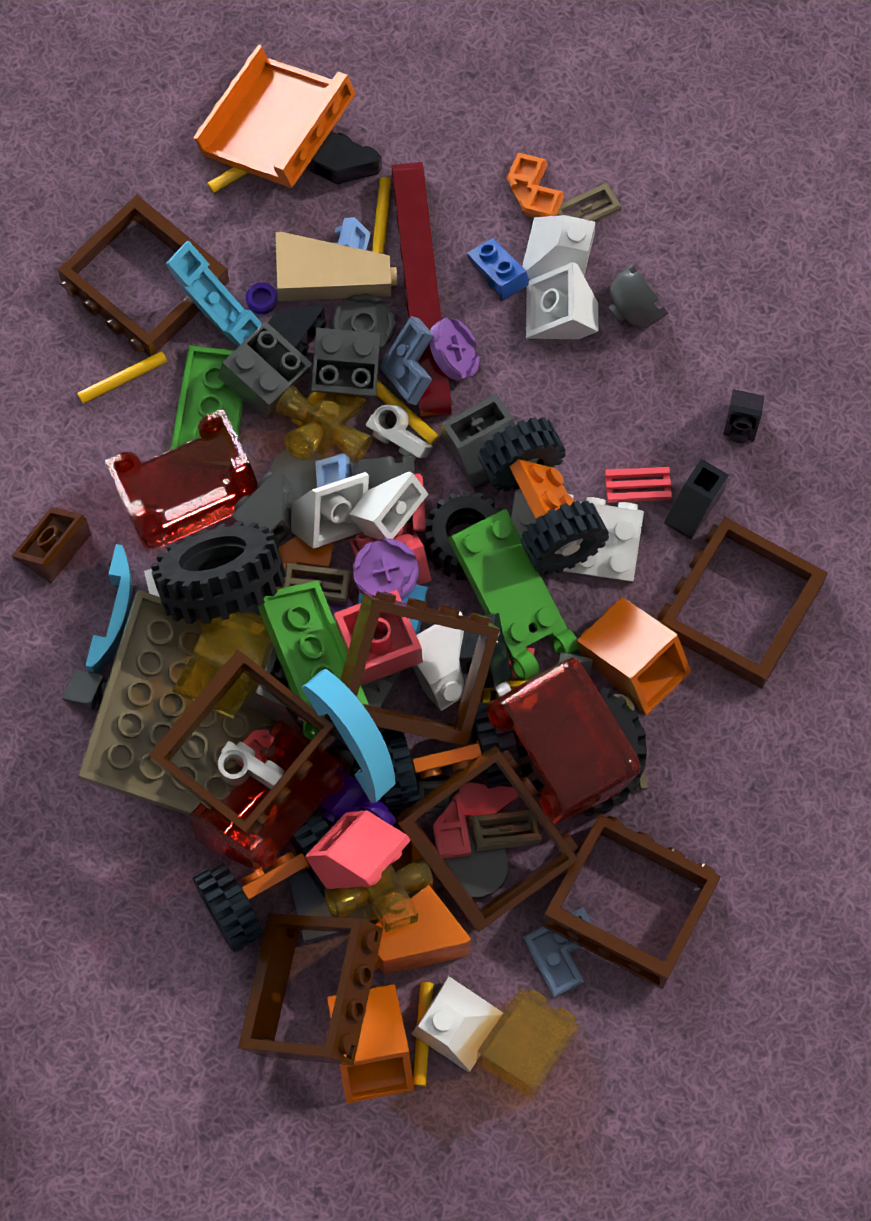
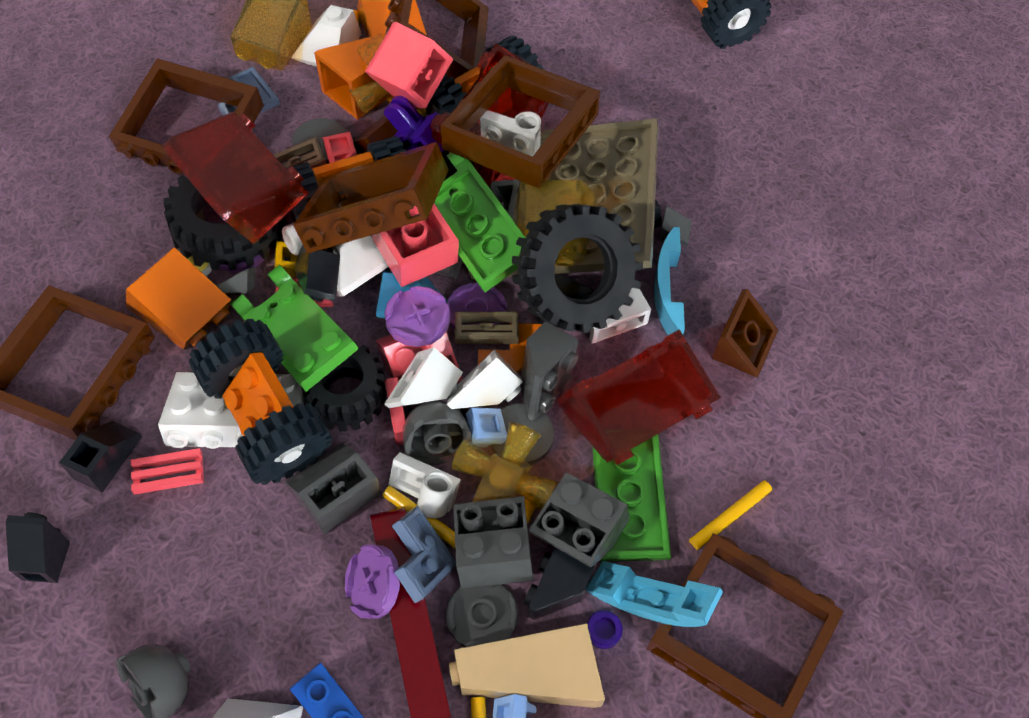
camera: 170 degrees right, 10 degrees down
(357, 729) = (430, 132): medium azure slope -> none
(522, 889) = (350, 117): reddish brown window -> none
(560, 305) = (250, 661): white slope -> none

